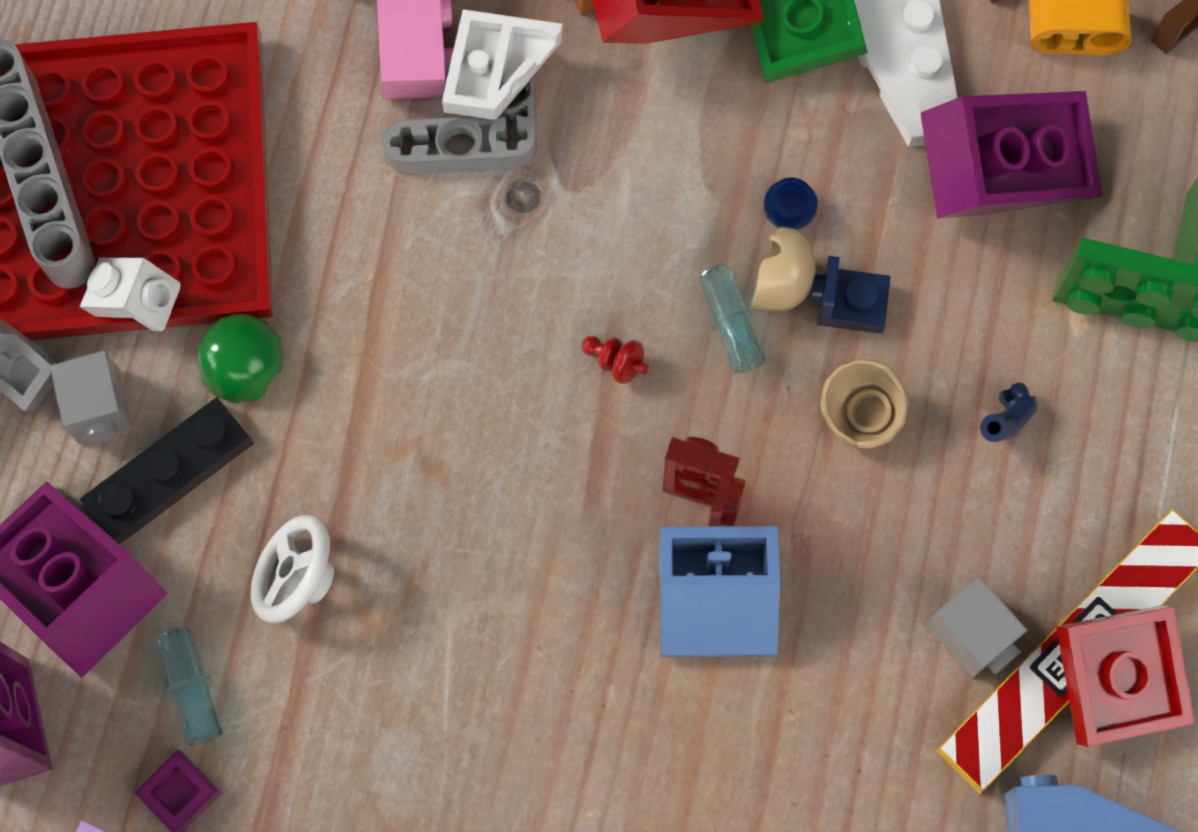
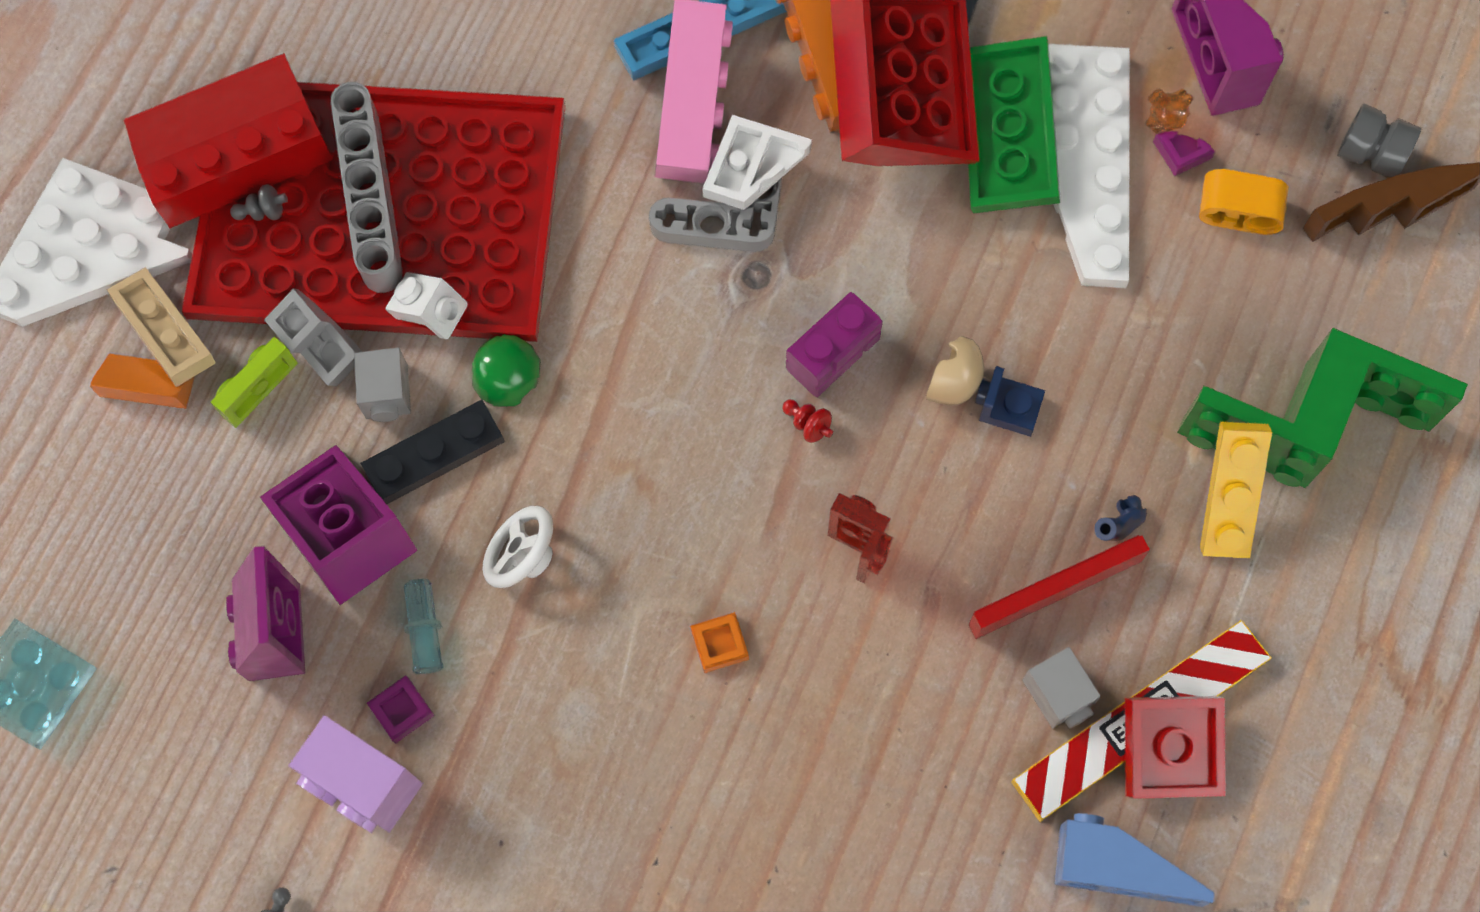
camera: 10 degrees right, 0 degrees up
(556, 643) = (719, 642): none -> orange tile
(630, 261) = (833, 344): none -> magenta brick
(719, 591) = (857, 623): medium blue slope -> none
(731, 318) = (908, 404): clear light blue axle -> none
(790, 203) = (974, 317): clear blue plate -> none
(864, 404) = (1003, 491): tan hair -> none
(949, 506) = (1058, 586): none -> red tile
(1010, 152) = (1163, 304): magenta slope -> none
(1139, 355) = (1235, 489): none -> yellow plate

